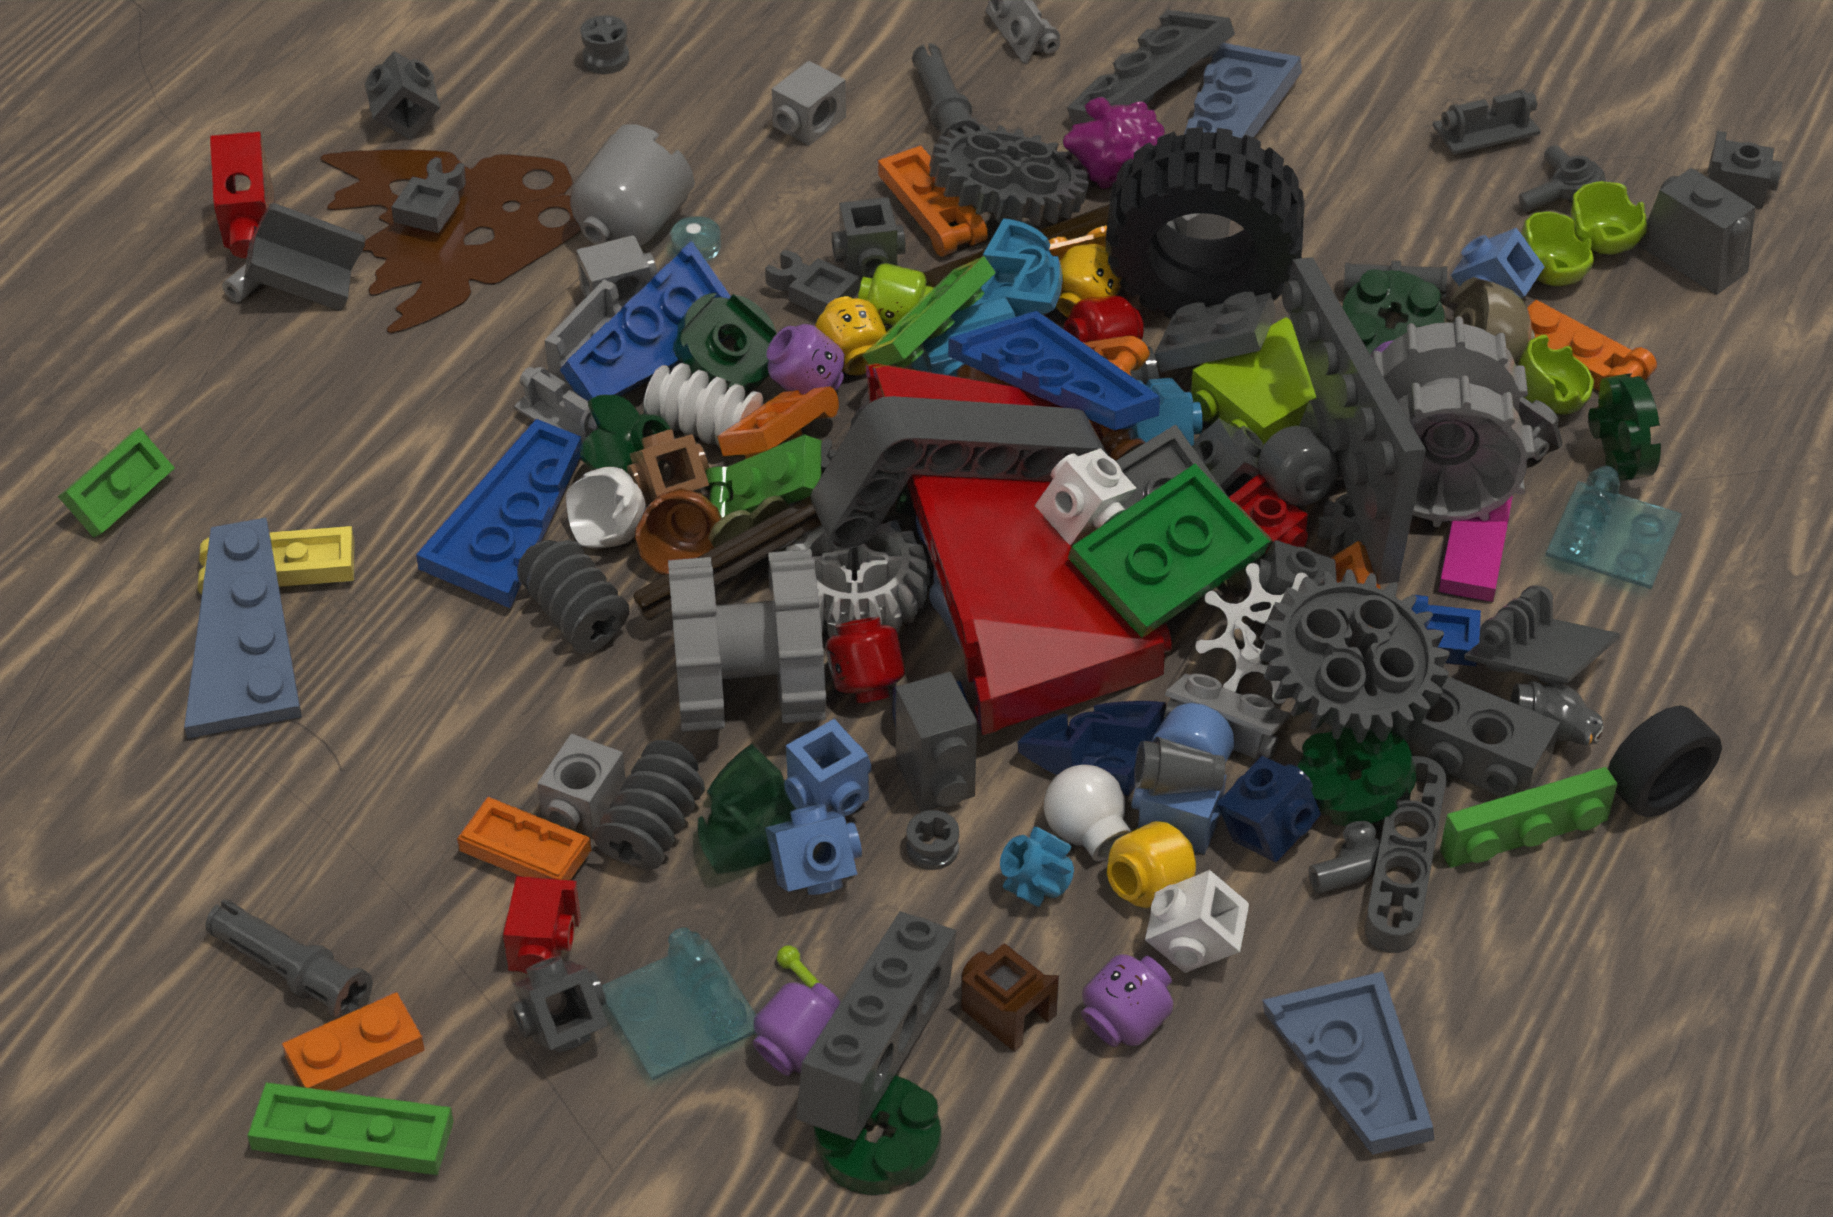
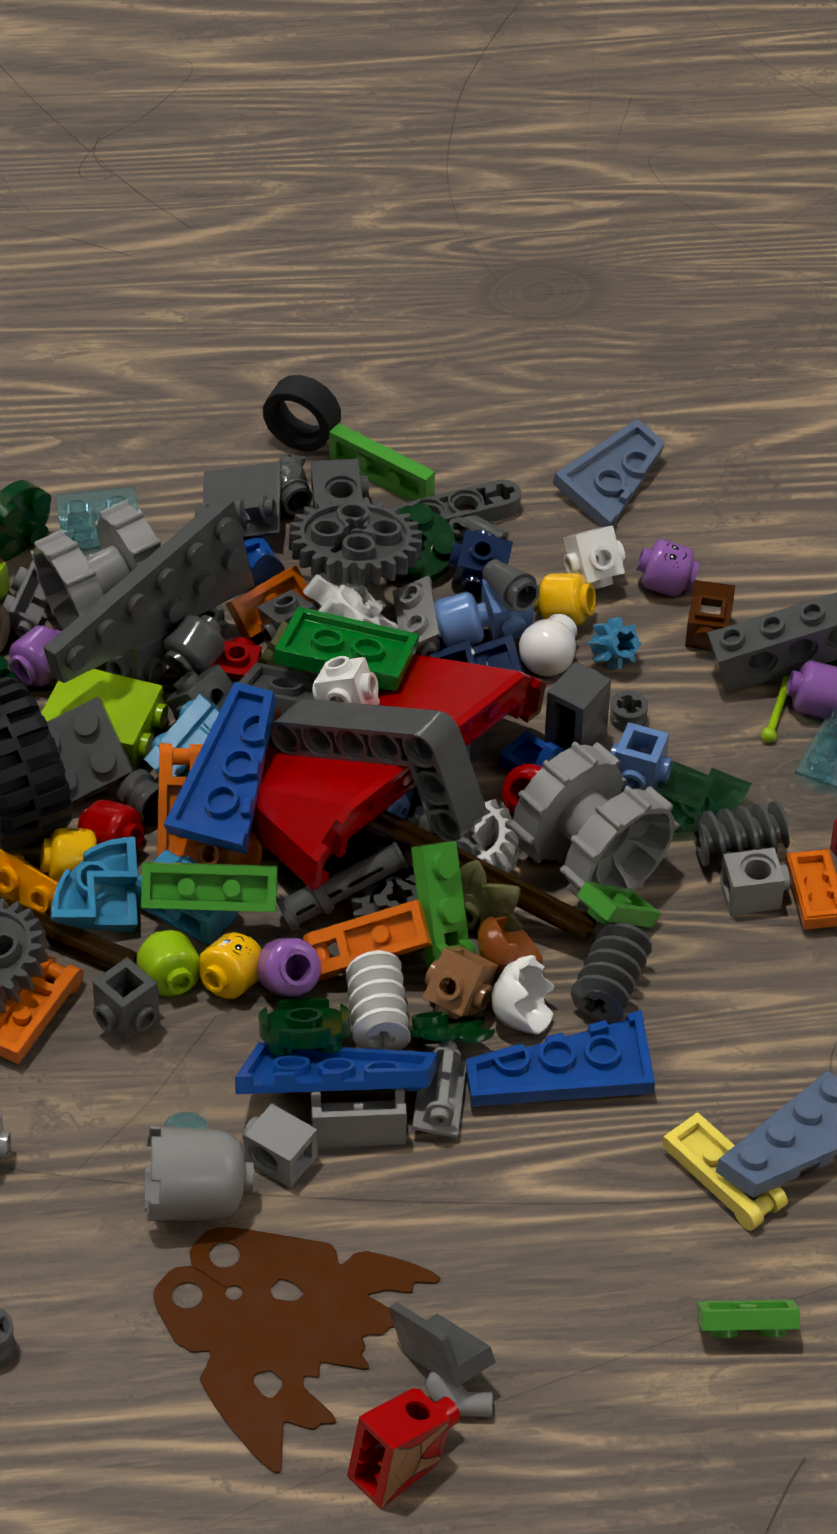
camera: 125 degrees left, 0 degrees up
(402, 94) = (181, 1425): dark grey brick -> none
(430, 201) = (289, 1326): dark grey plate -> none
(644, 637) = (617, 905): none -> bright green plate
(793, 846) = (700, 739): medium blue brick -> none
(813, 284) = (186, 1024): dark grey plate -> none

